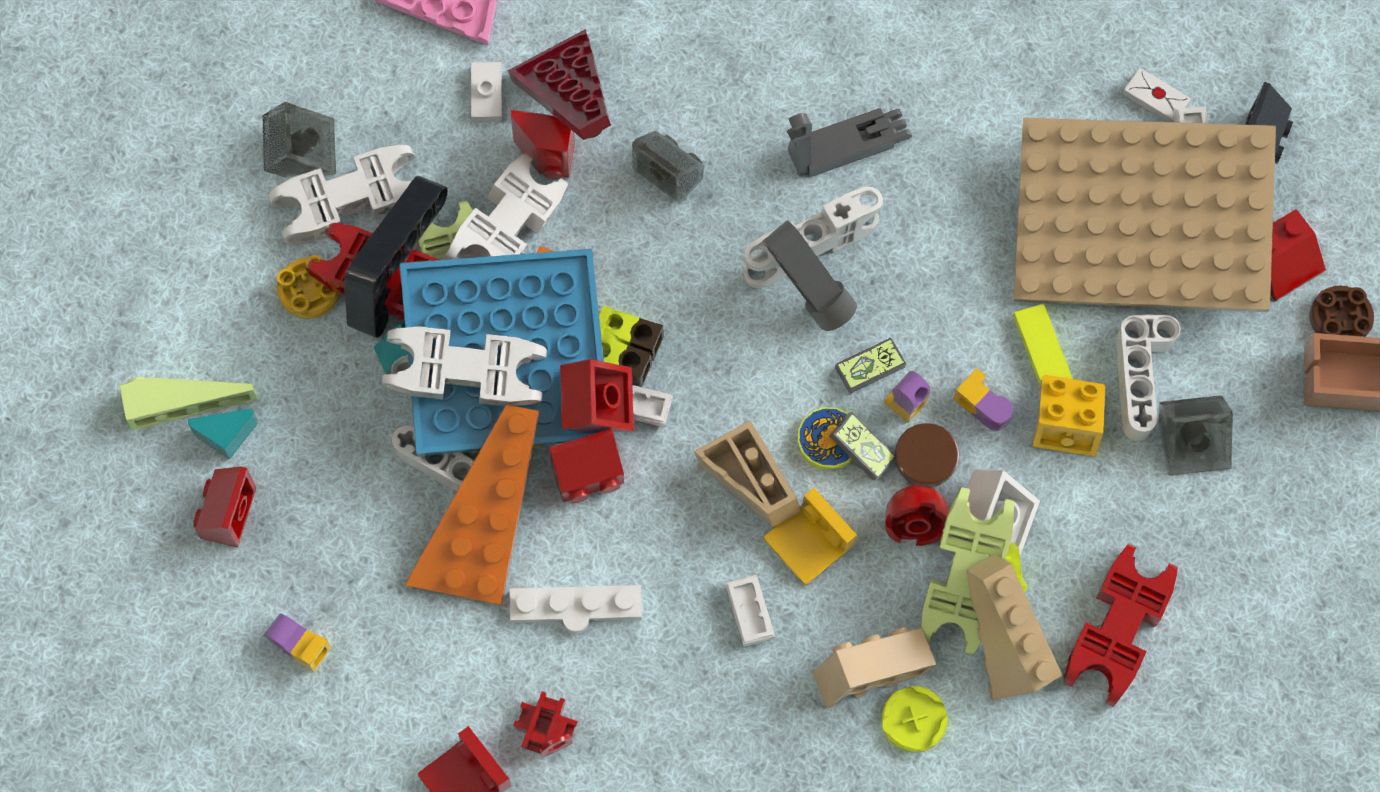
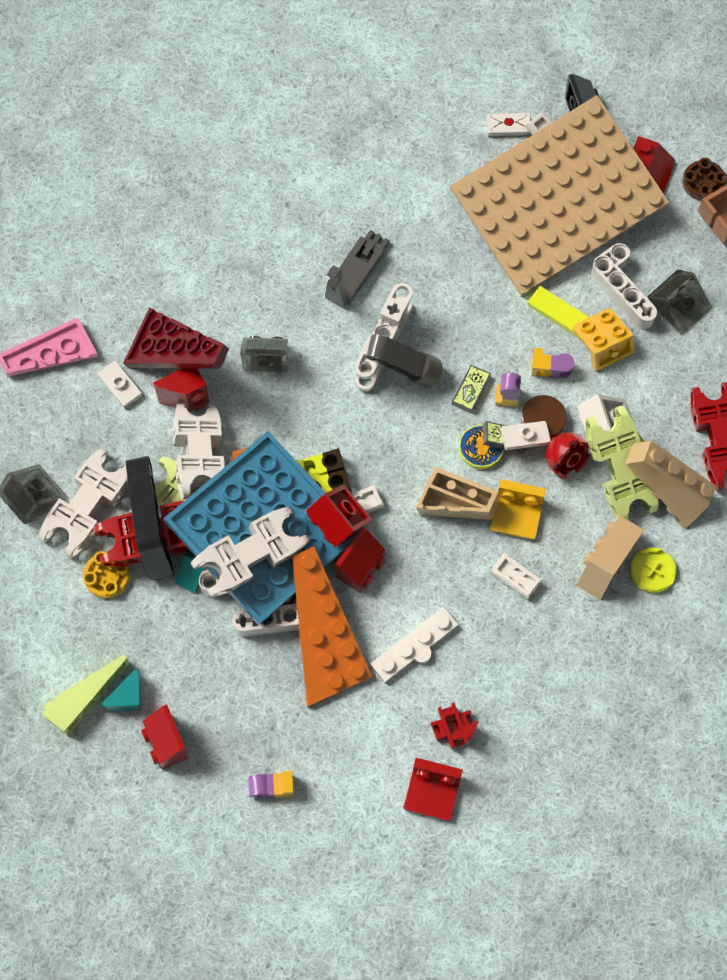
camera: 35 degrees left, 0 degrees up
(885, 459) = (525, 435): none -> white plate

